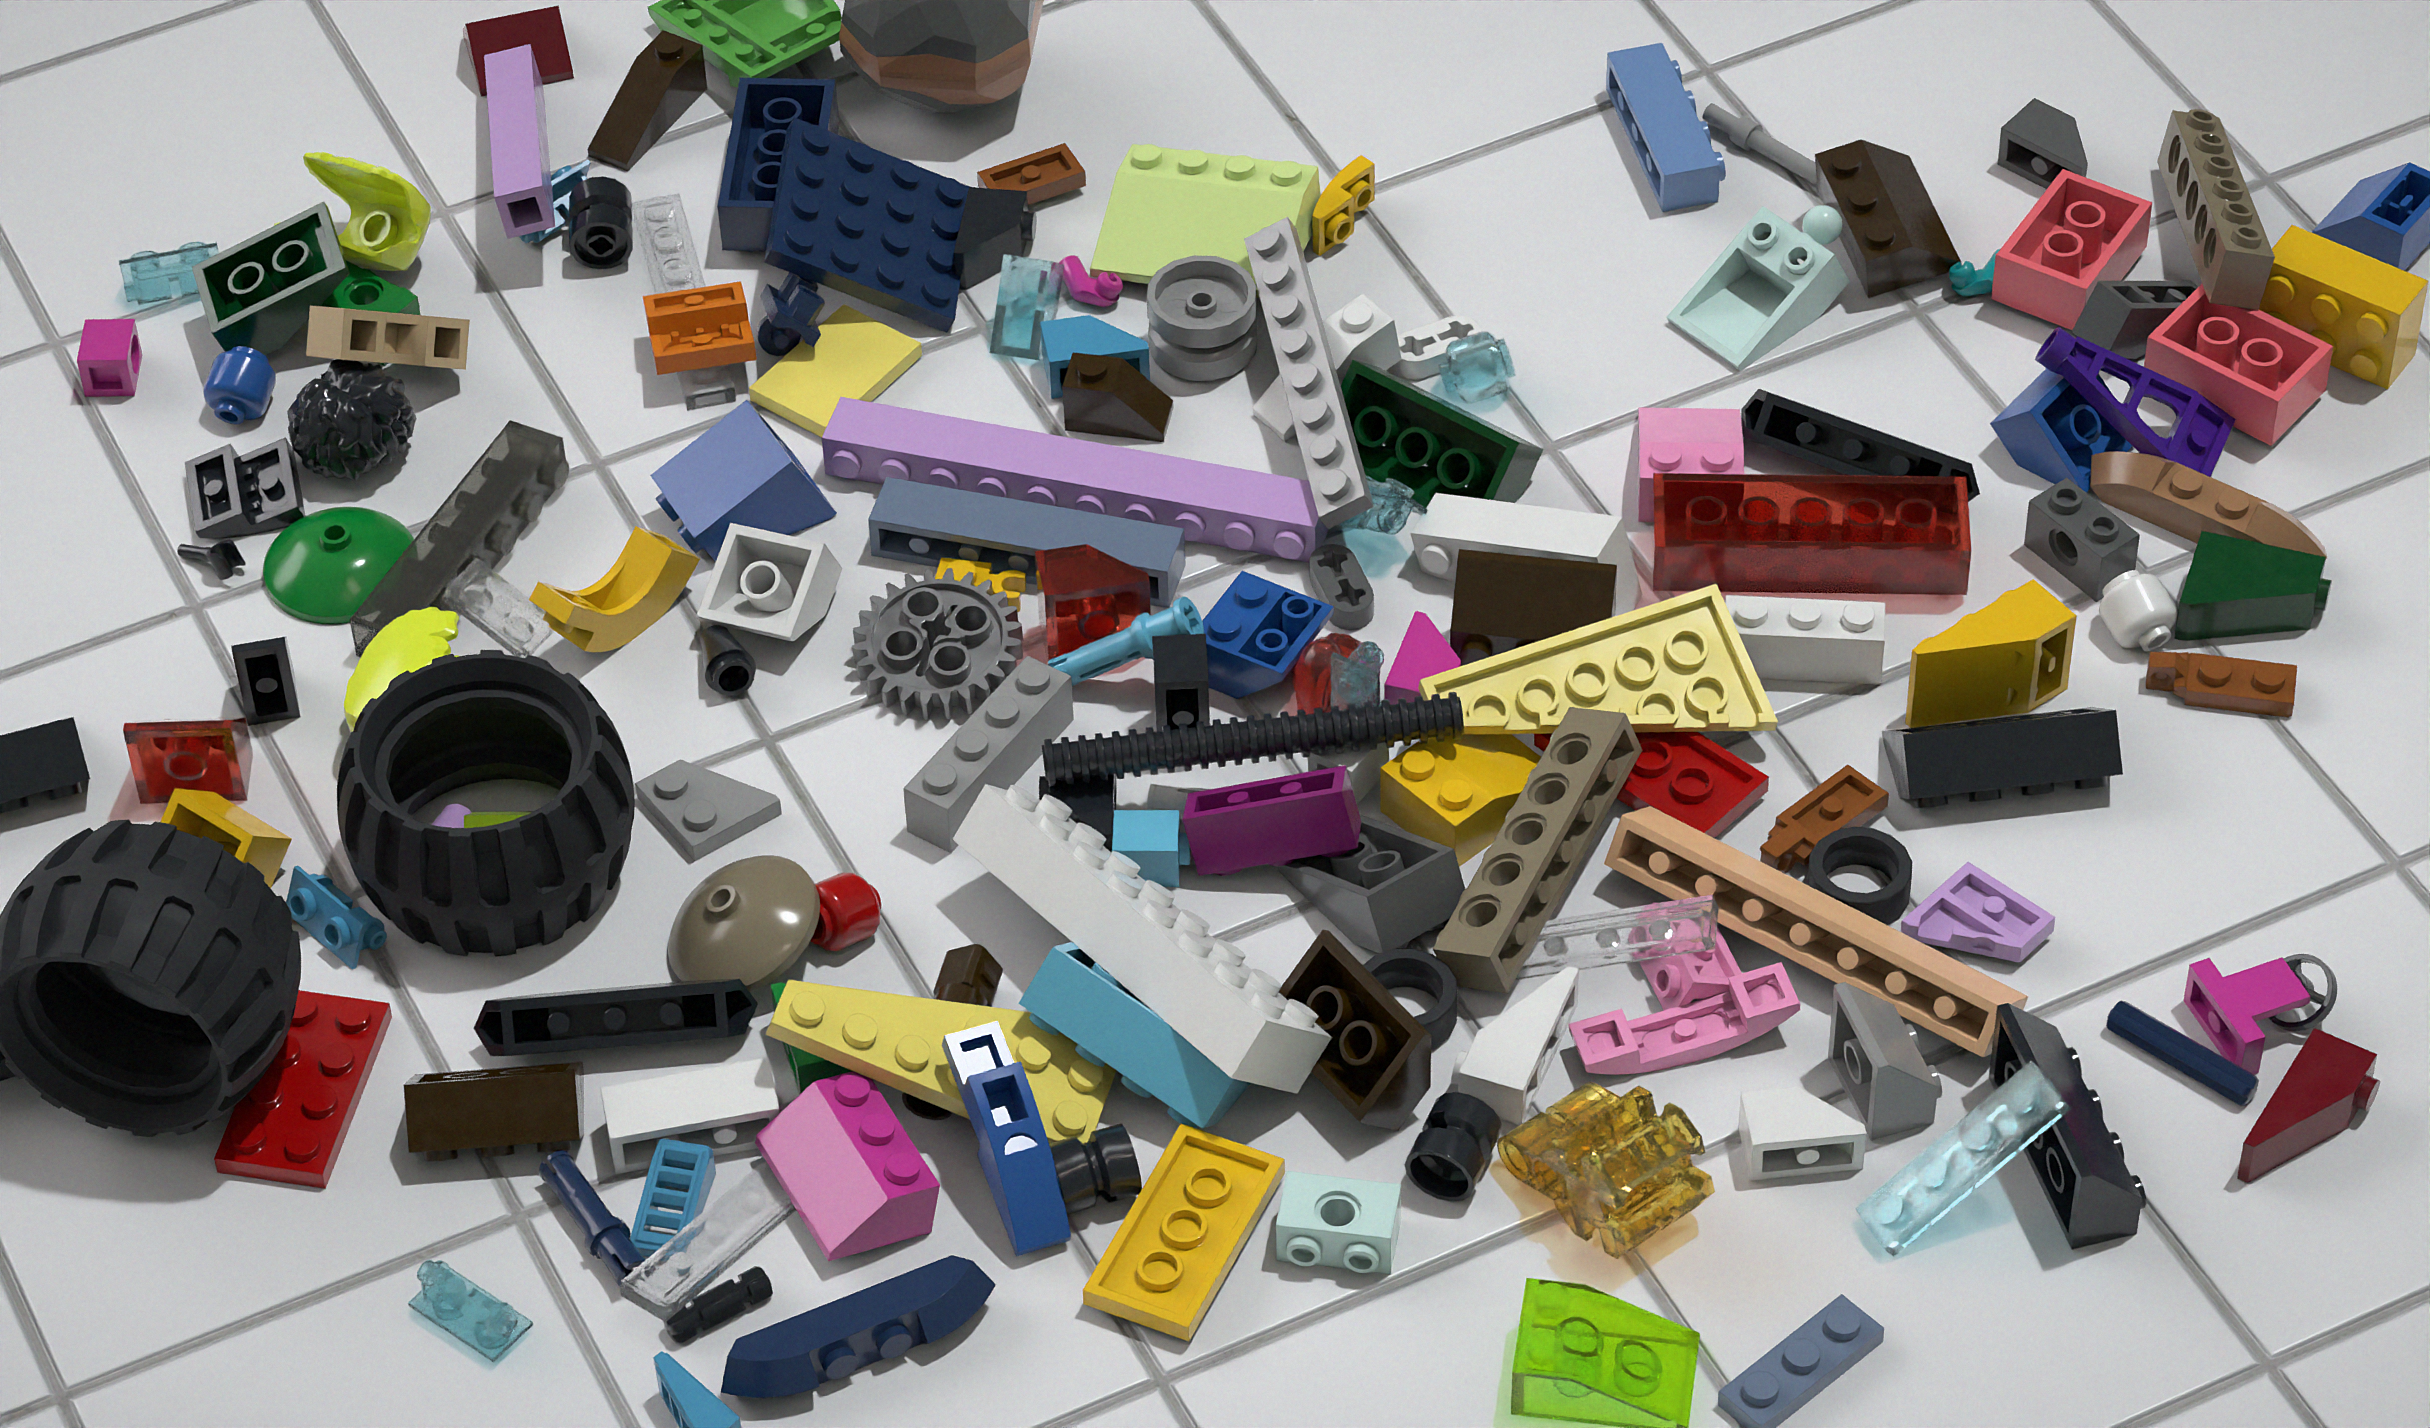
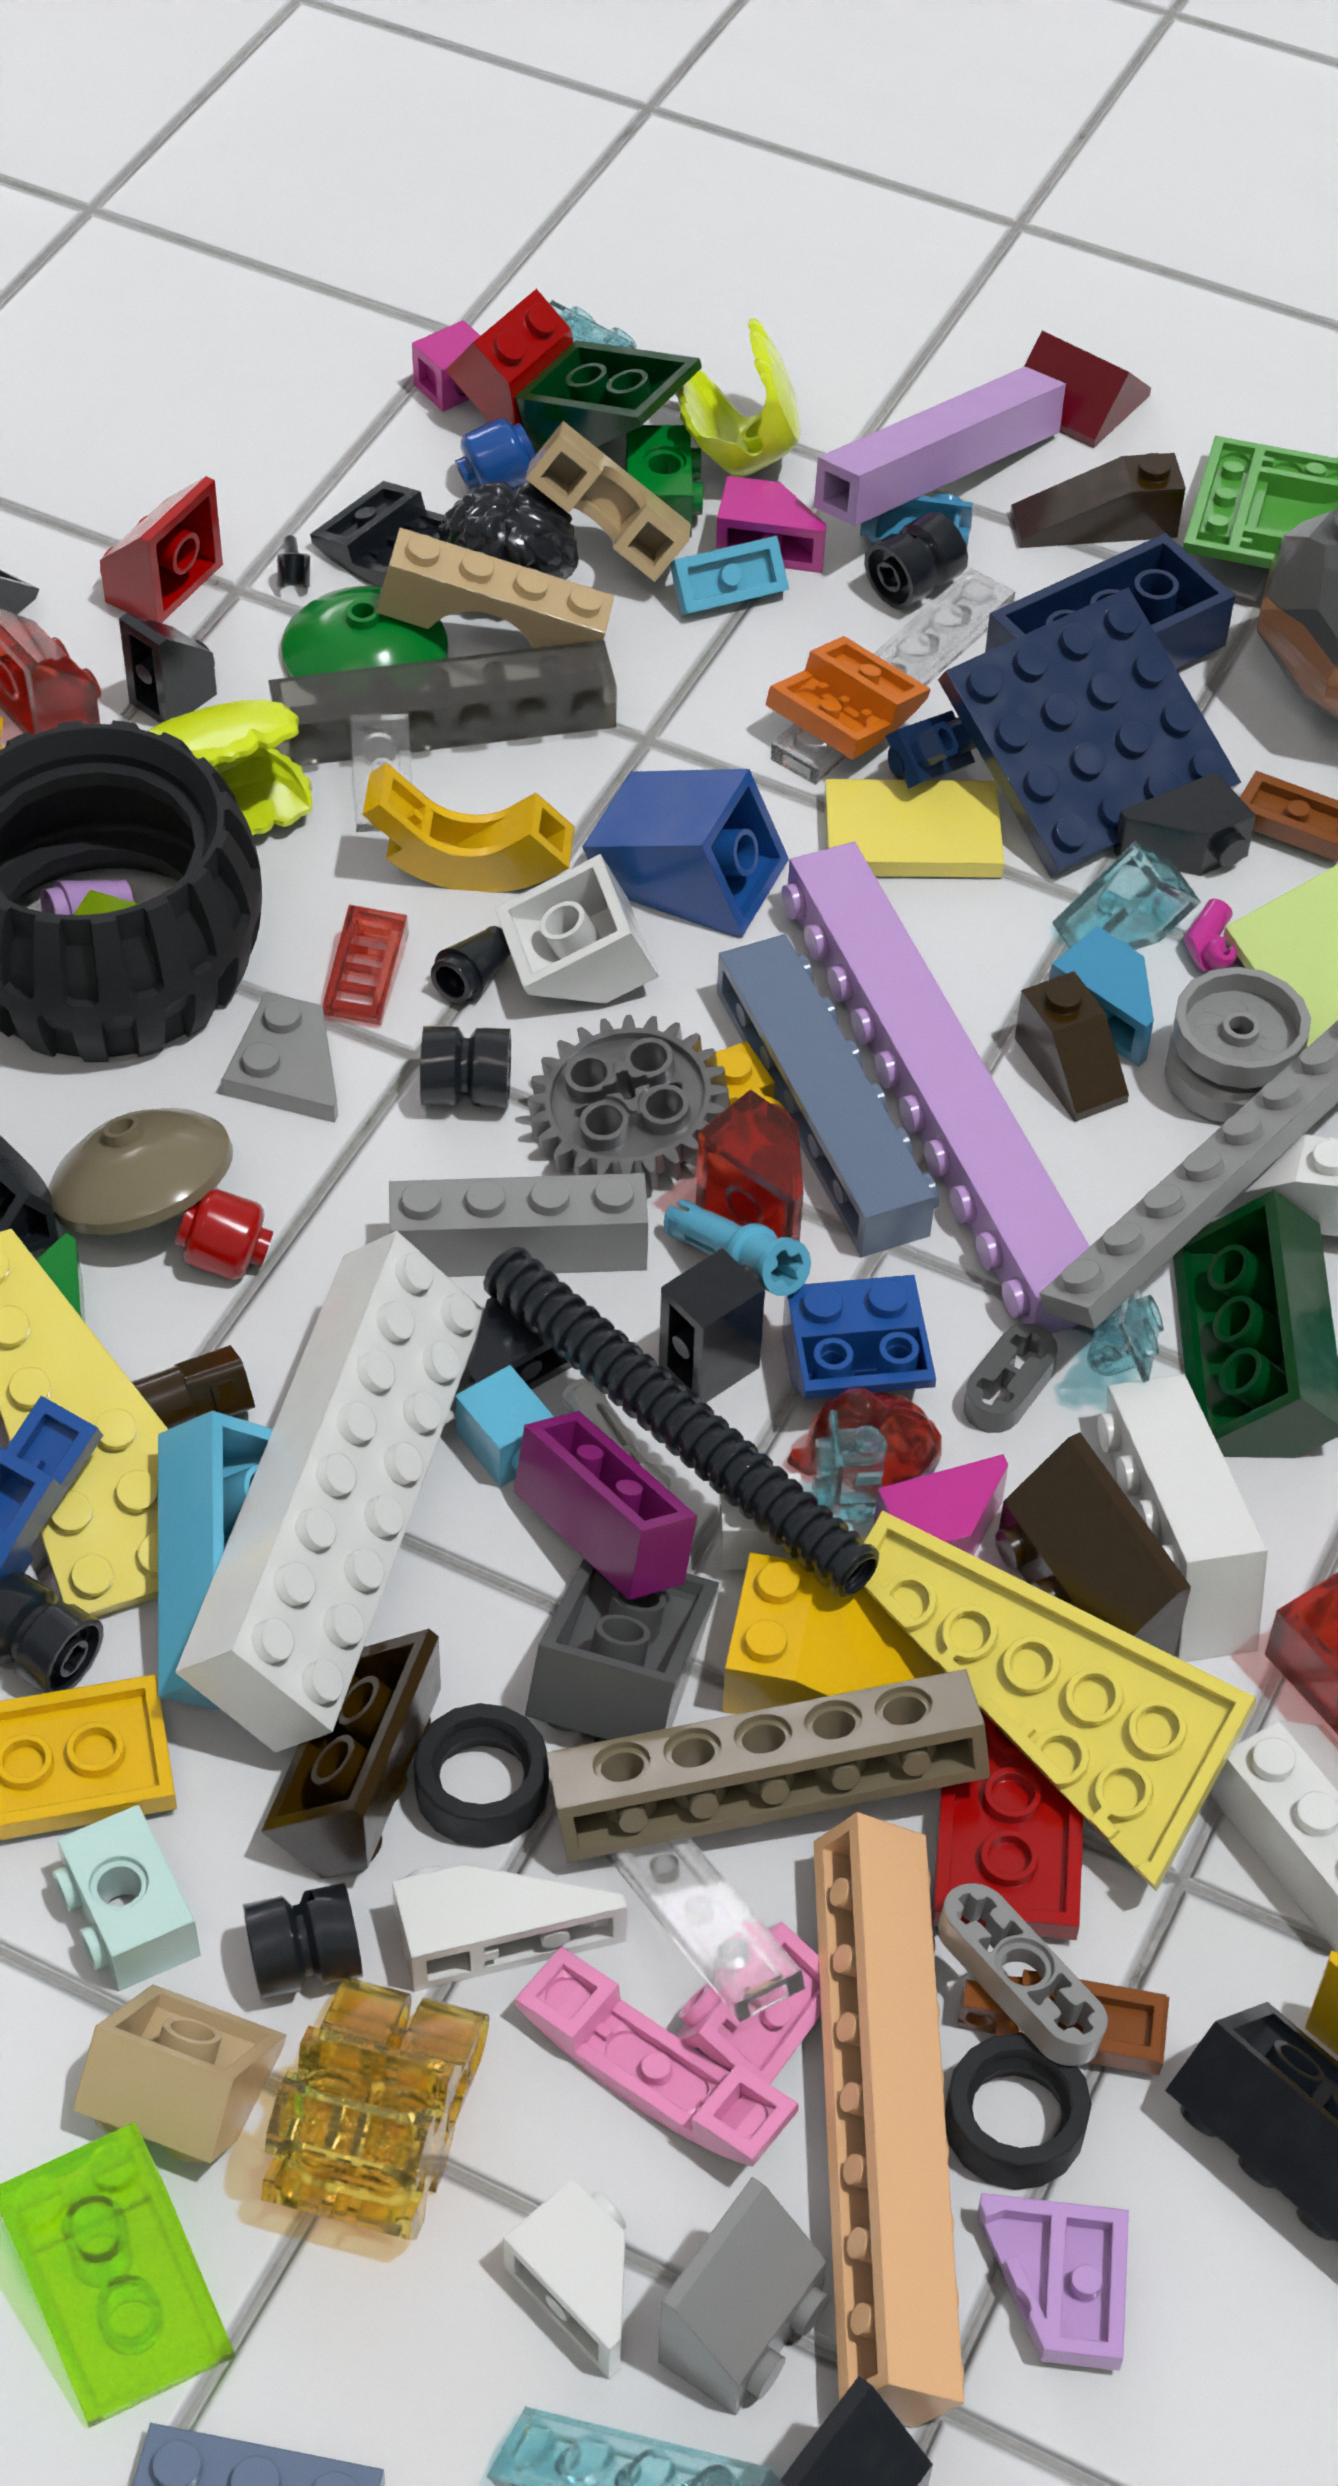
camera: 50 degrees right, 5 degrees up
(134, 616) = (165, 554): none -> red slope
(167, 313) = (511, 357): none -> red slope
(364, 471) = (439, 579): none -> tan arch
(476, 279) = (767, 509): none -> dark pink slope
(502, 327) = (729, 575): none -> medium azure plate
(653, 686) = (370, 926): none -> clear red slope
(823, 707) = (465, 1066): none -> black wheel
(1489, 1256) = (177, 2073): none -> tan slope
(1820, 809) = (1025, 2005): none -> light grey beam

